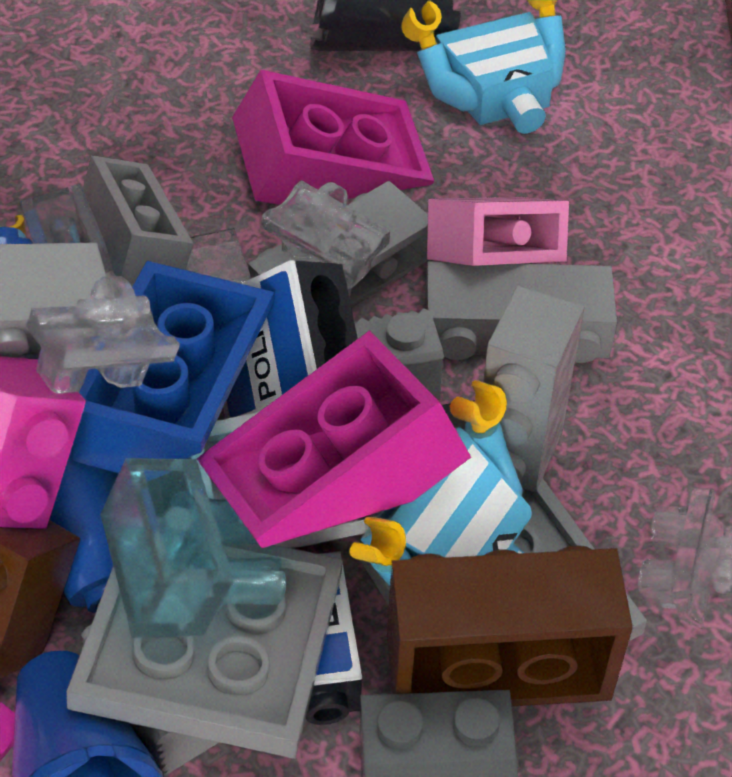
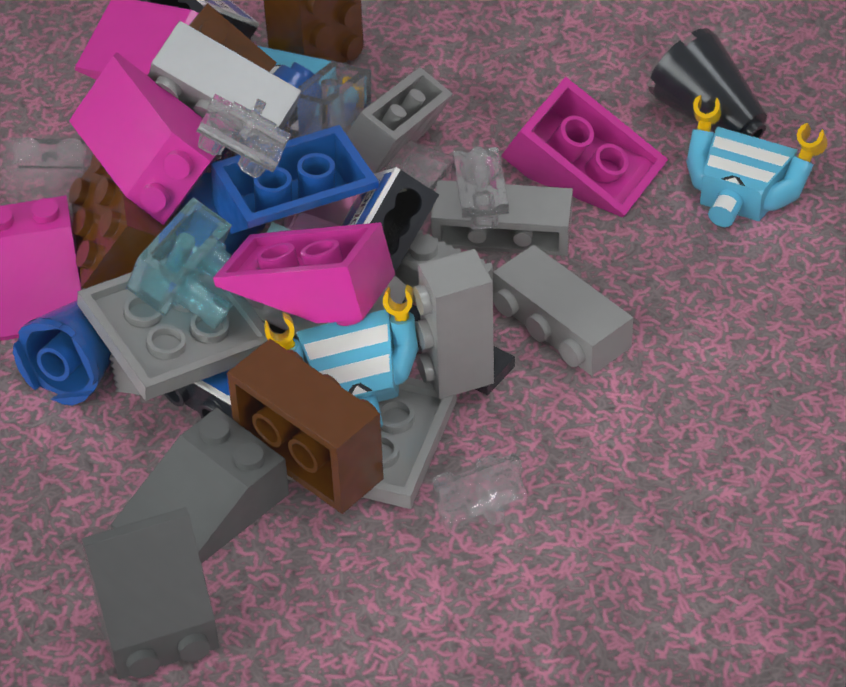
camera: 50 degrees right, 5 degrees down
(497, 230) = (593, 254): bright pink brick -> none

